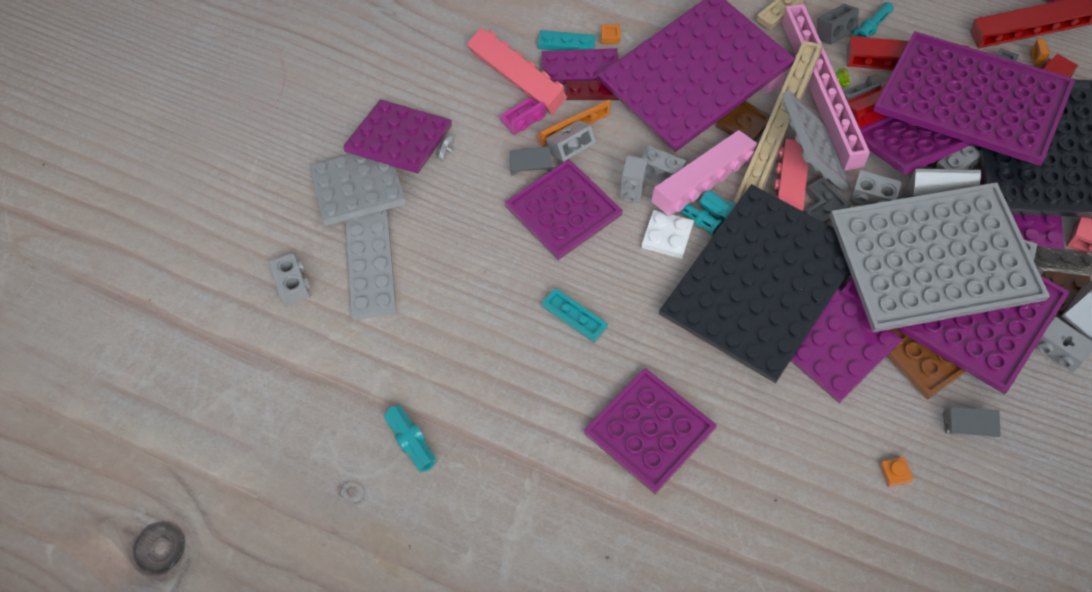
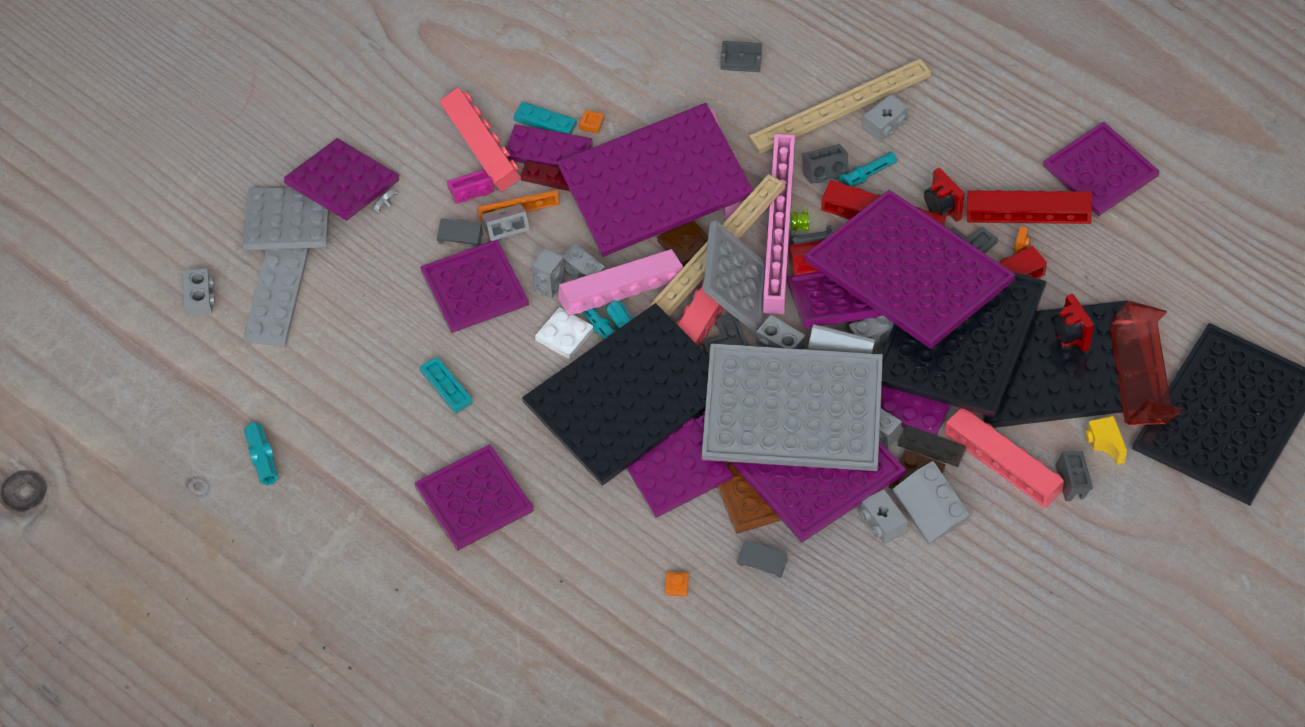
camera: 15 degrees right, 5 degrees down
(959, 25) = (944, 196): none -> red piece

